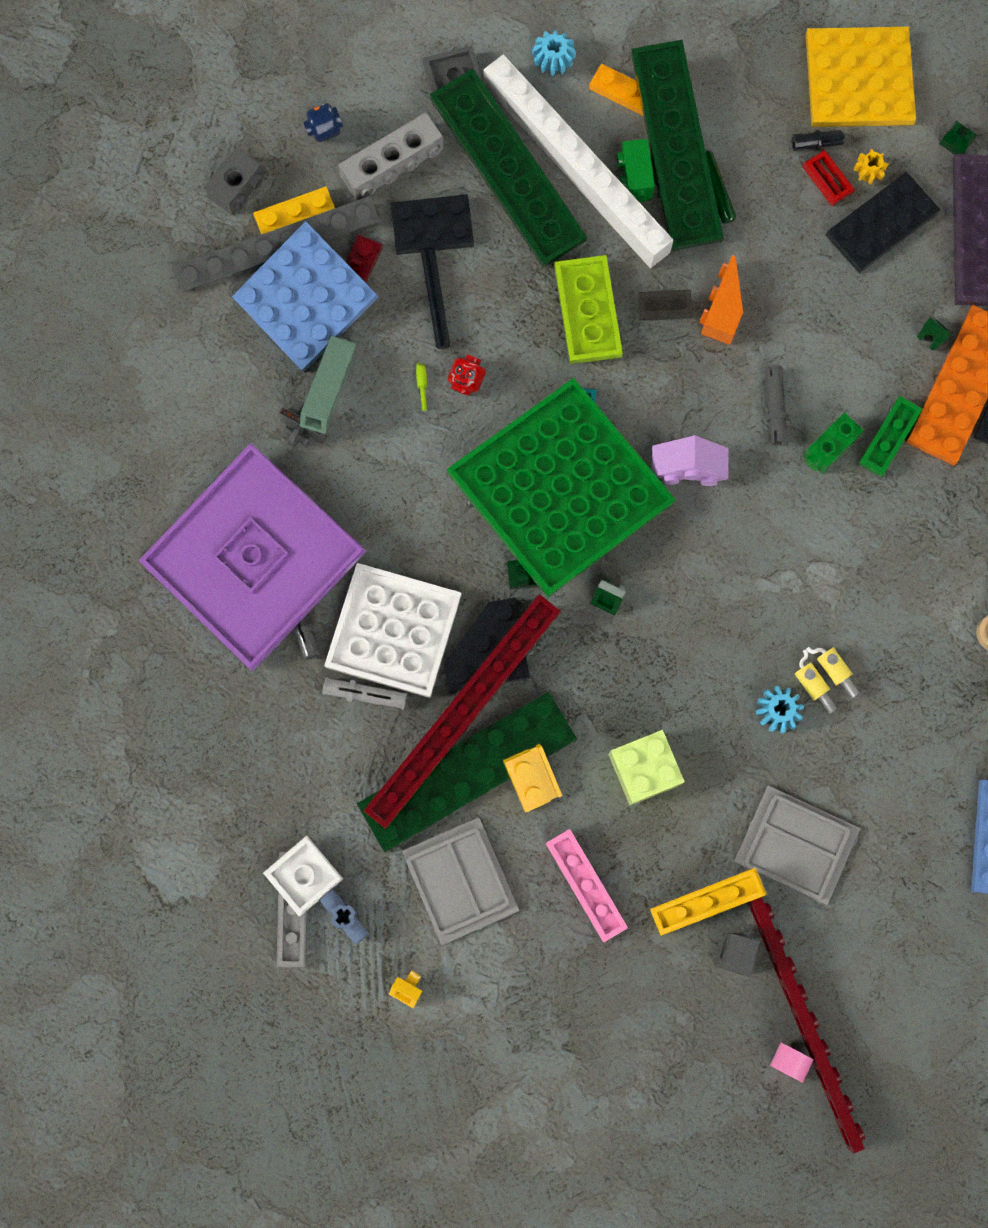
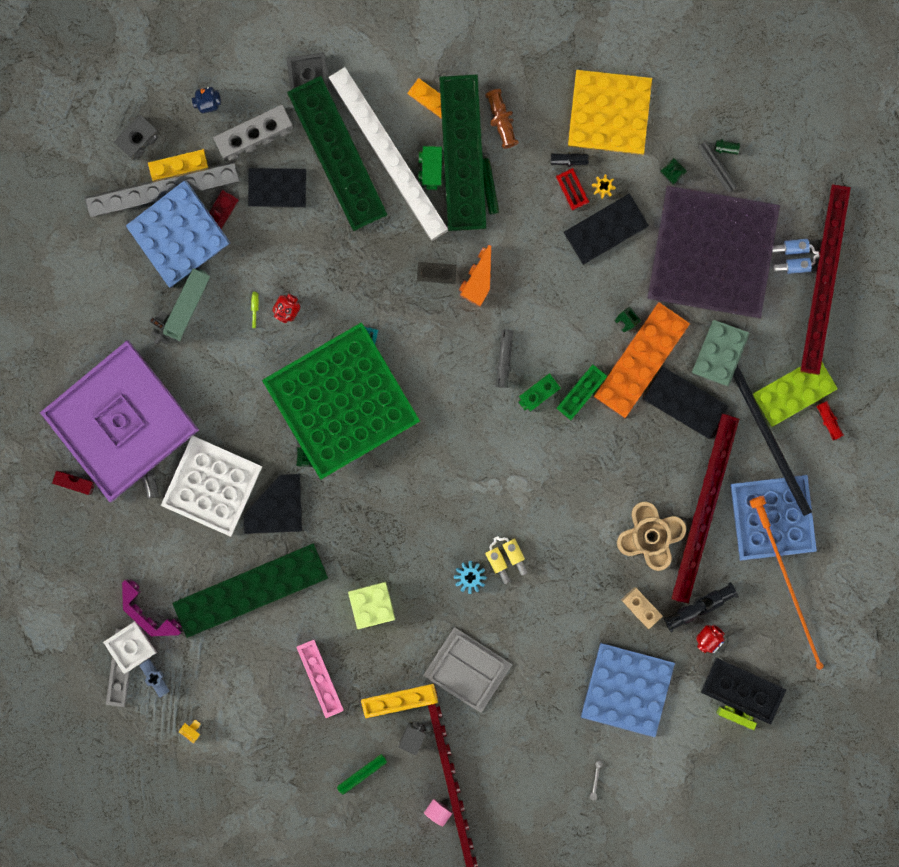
camera: 10 degrees right, 10 degrees up
(206, 653) = (73, 482): none -> dark red piece
(294, 799) = (130, 591): none -> magenta slope
(332, 686) = (186, 527): light grey pin -> none
(435, 299) = (272, 245): black axle -> none
(460, 881) = (236, 663): light grey piece -> none
(462, 711) = (251, 550): dark red plate -> none
(532, 778) = (293, 601): yellow plate -> none
(554, 52) = (388, 60): medium azure gear -> none
(588, 309) = (380, 269): lime plate -> none
(608, 596) = (363, 482): dark green tile -> none
(668, 1021) = (362, 774): none -> green axle
(690, 460) = (435, 395): lavender brick -> none
(720, 98) = (501, 118): none -> dark orange piece

